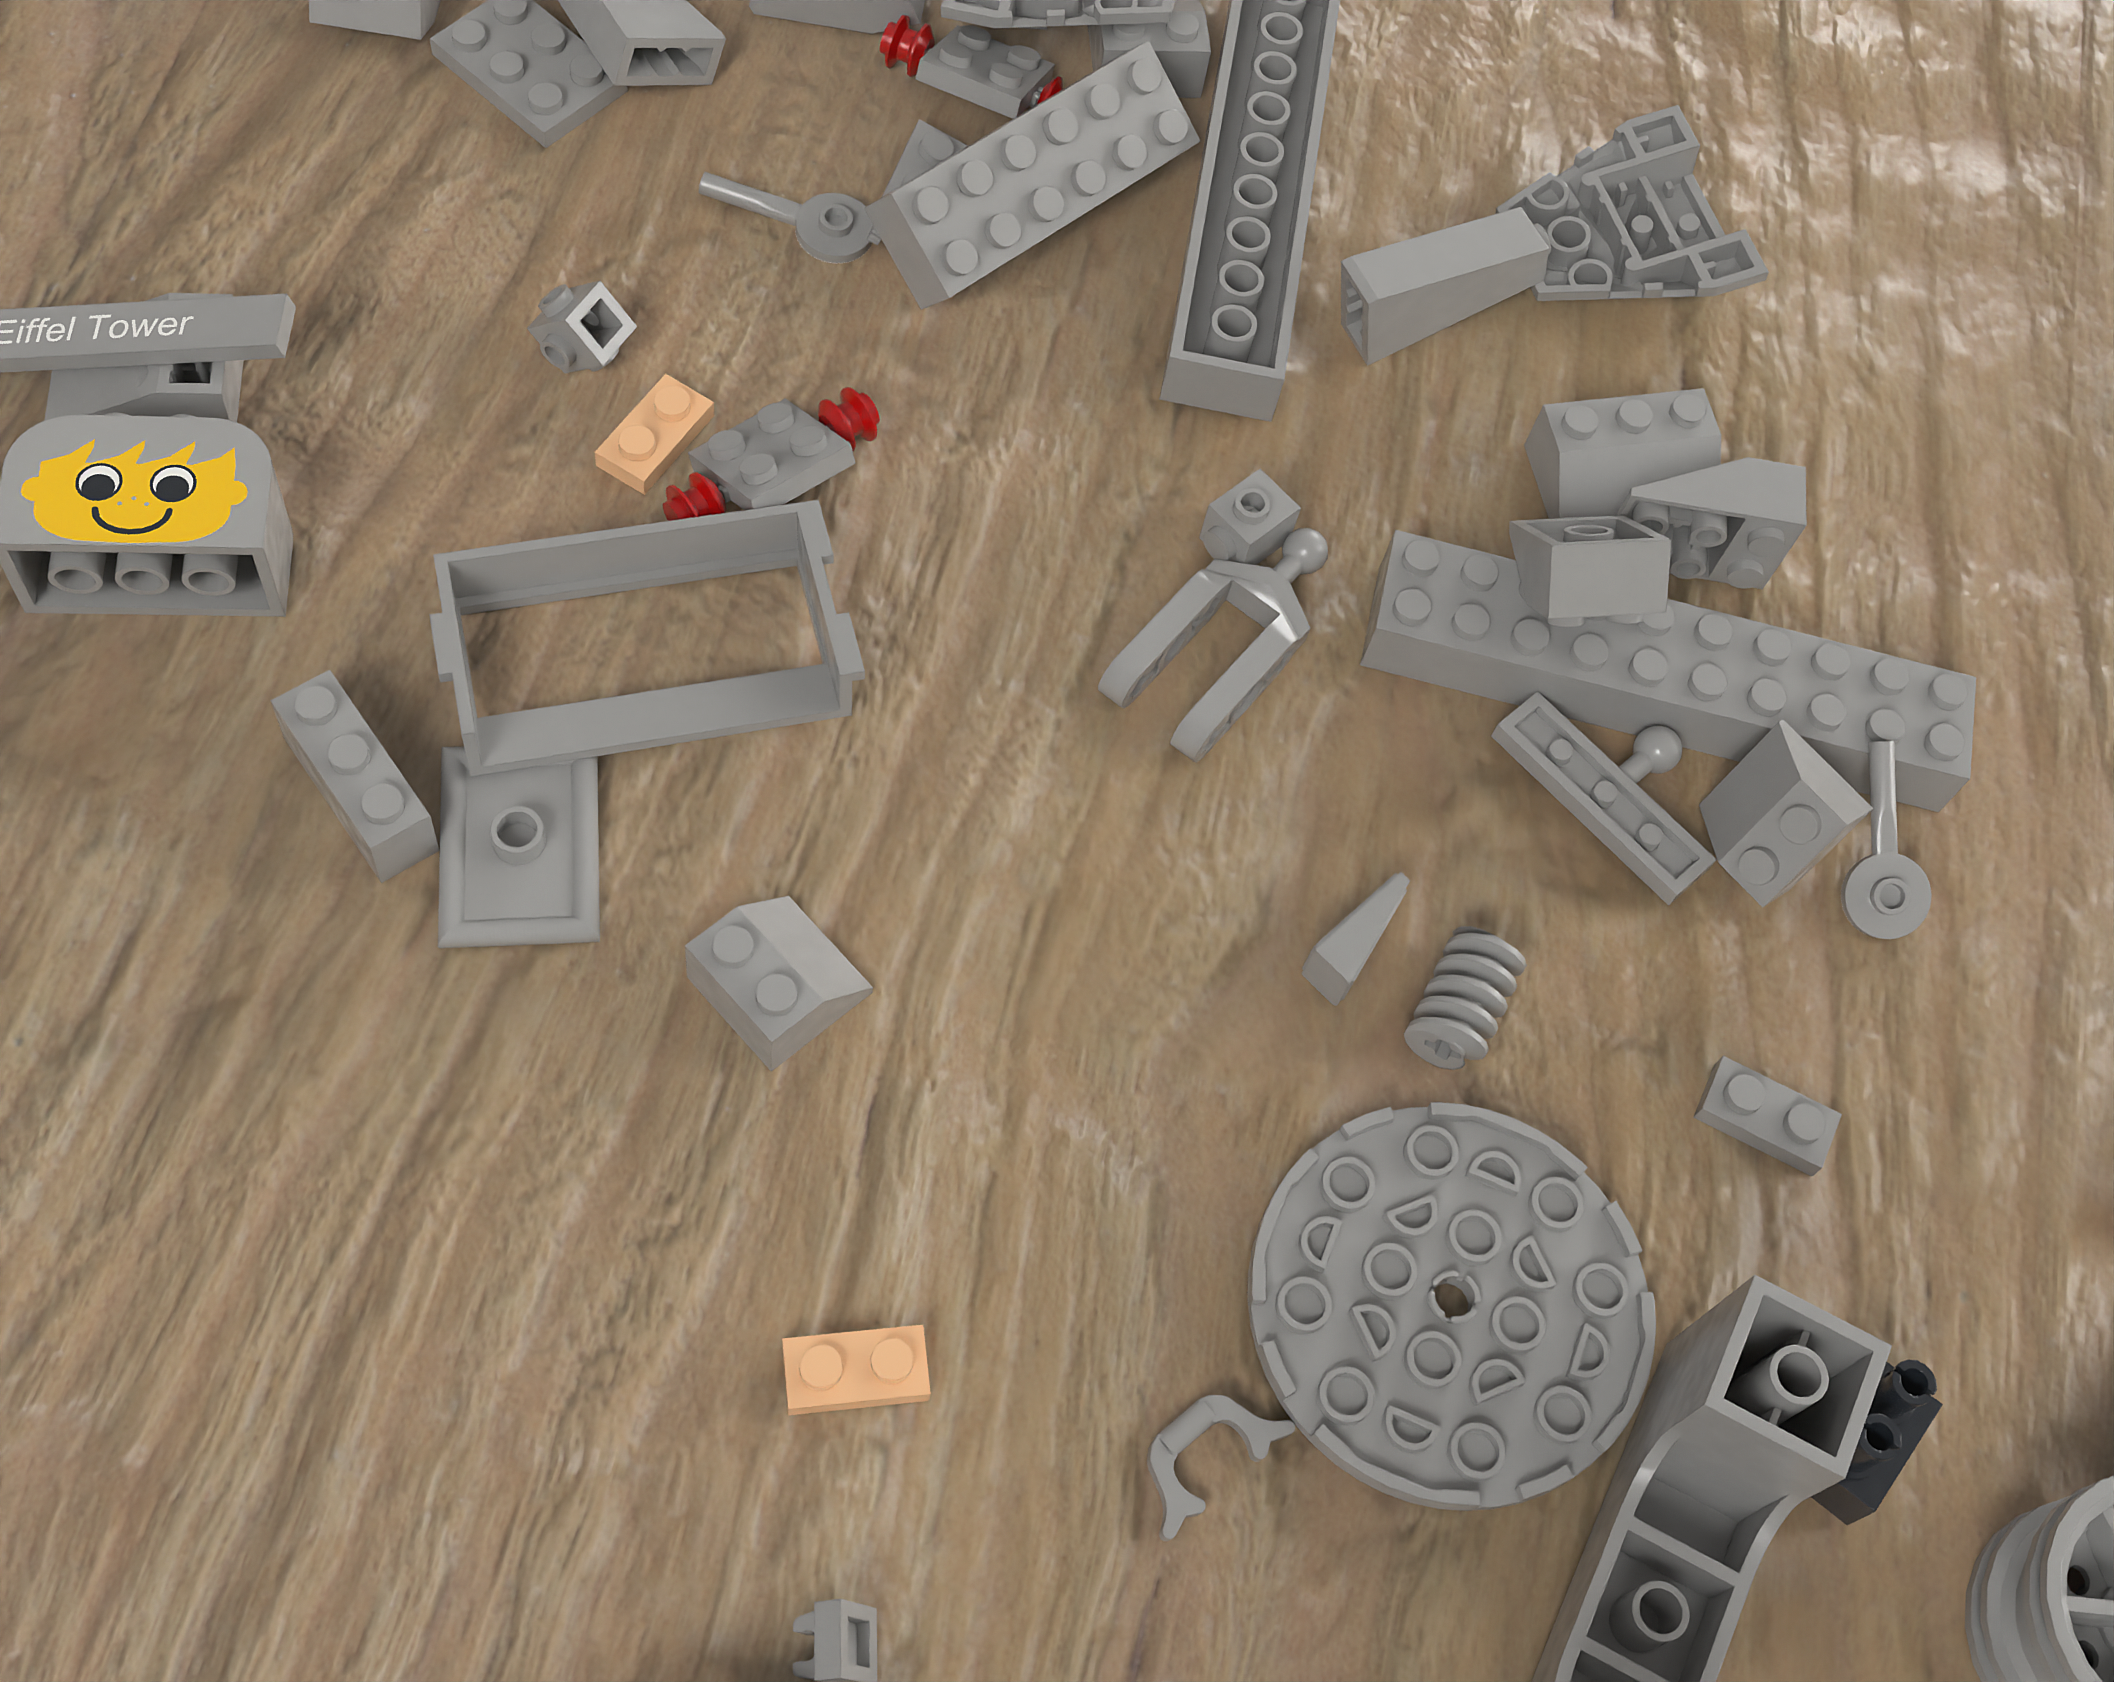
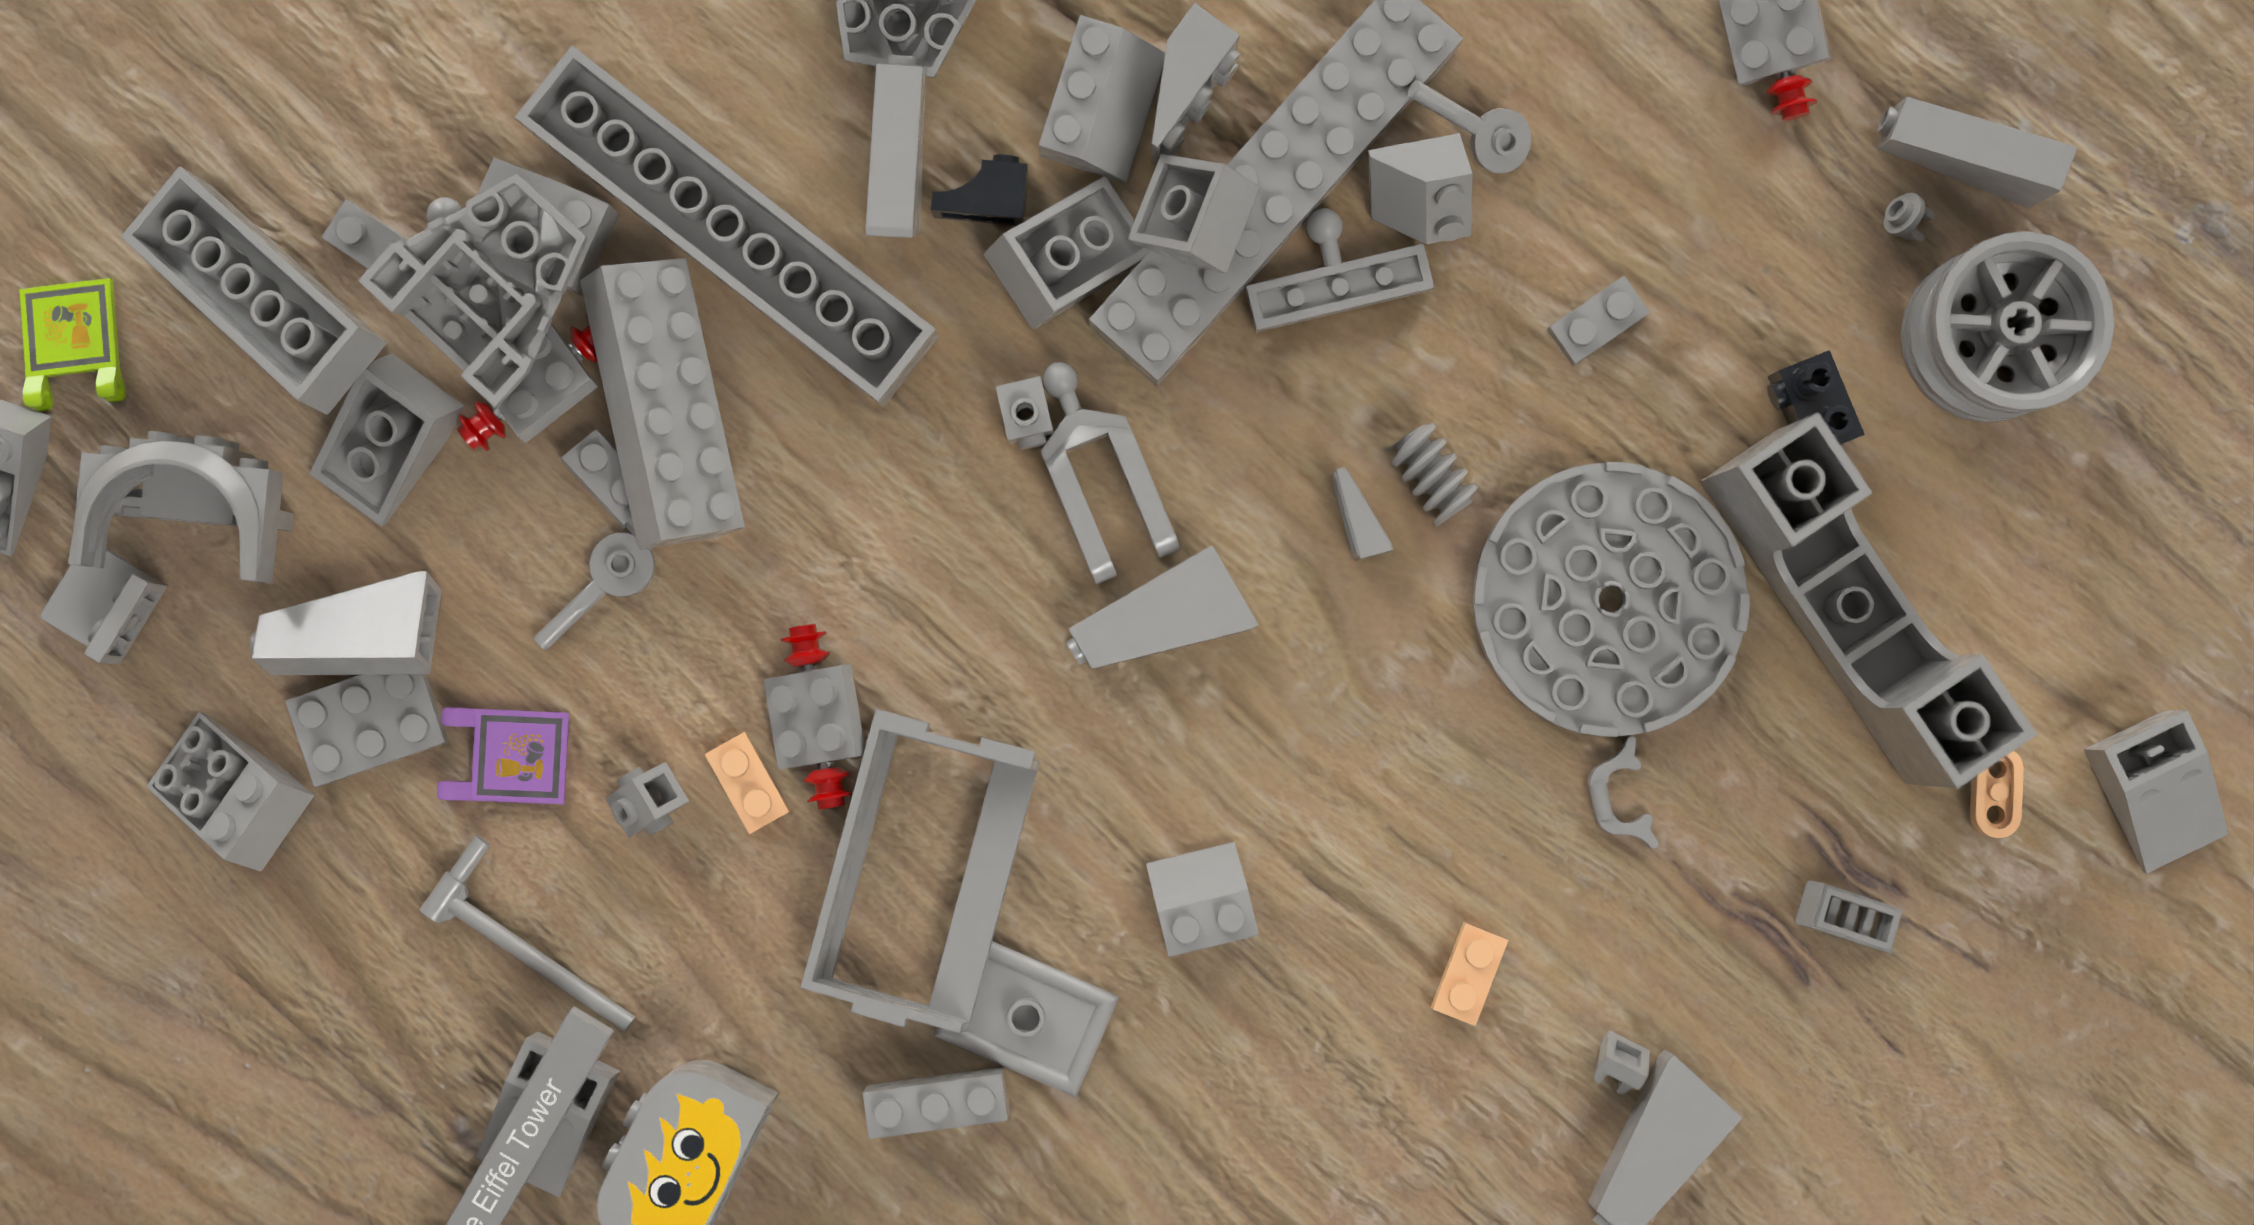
camera: 55 degrees left, 25 degrees up
(359, 203) = (449, 900): none -> light grey bar
(563, 206) = (514, 756): none -> medium lavender flag
(1107, 772) = (1170, 612): none -> light grey slope
(1440, 484) = (1065, 252): none -> light grey slope
(1453, 401) = (991, 197): none -> black arch

